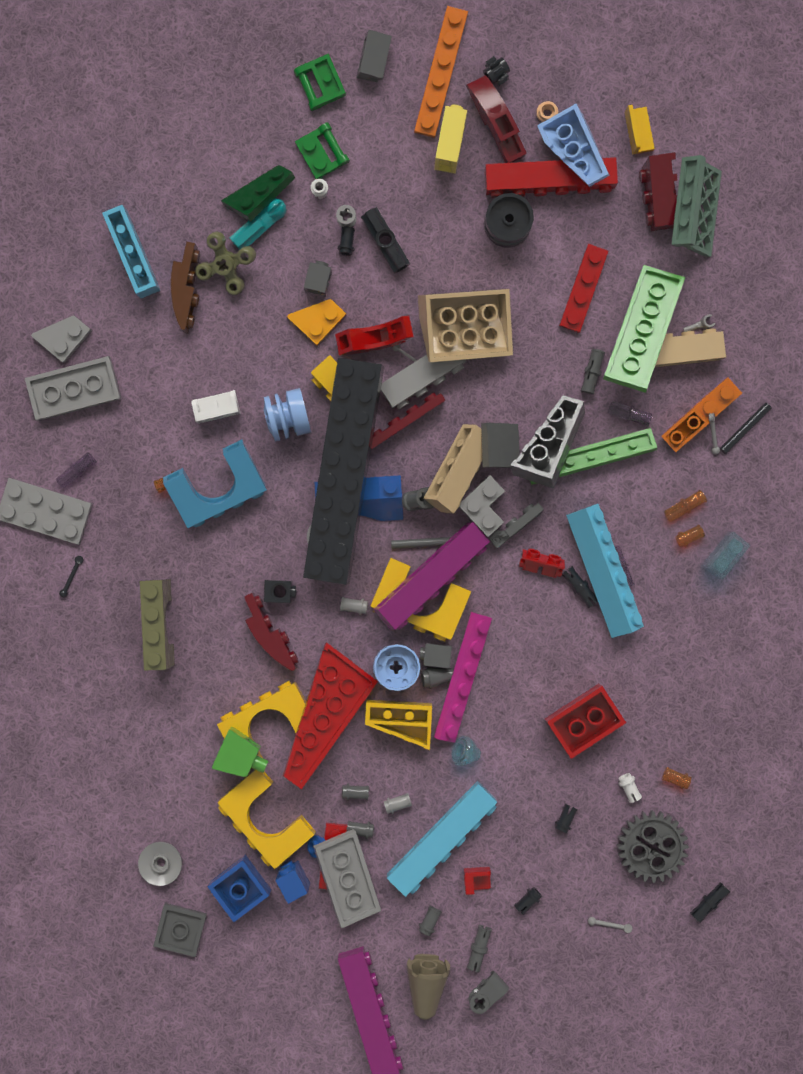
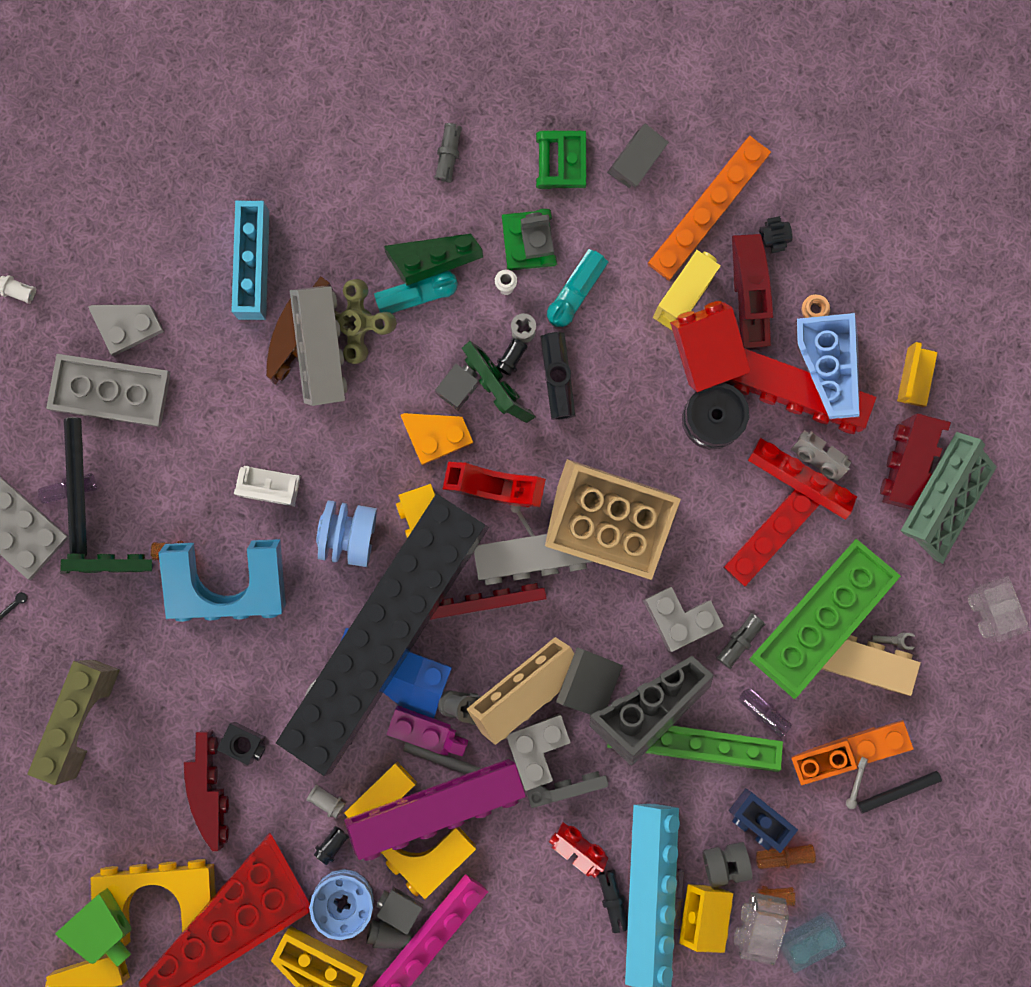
camera: 20 degrees right, 5 degrees down
(82, 465) = (75, 485): none -> black axle
(147, 501) = (105, 562): none -> dark green wing
(207, 291) = (318, 345): none -> light grey brick
(236, 112) = (448, 152): none -> dark grey pin
(327, 145) = (536, 235): none -> dark grey bracket
(340, 264) = (490, 380): none -> dark green wing
(370, 633) = (331, 845): none -> black pin
(371, 171) = (562, 310): none -> teal piece
(402, 529) = (425, 732): none -> magenta hinge
(484, 170) = (710, 345): none -> red brick
(541, 379) = (680, 627): none -> light grey brick
(588, 238) = (802, 478): none -> red plate
(603, 219) = (830, 463): none -> light grey hinge
(642, 533) = (718, 870): none -> dark grey wheel
(648, 570) = (706, 918): none -> yellow brick
(658, 486) = (769, 826): none -> dark blue brick
(688, 559) = (762, 928): none -> clear brick
(762, 271) = (998, 609): none -> clear brick

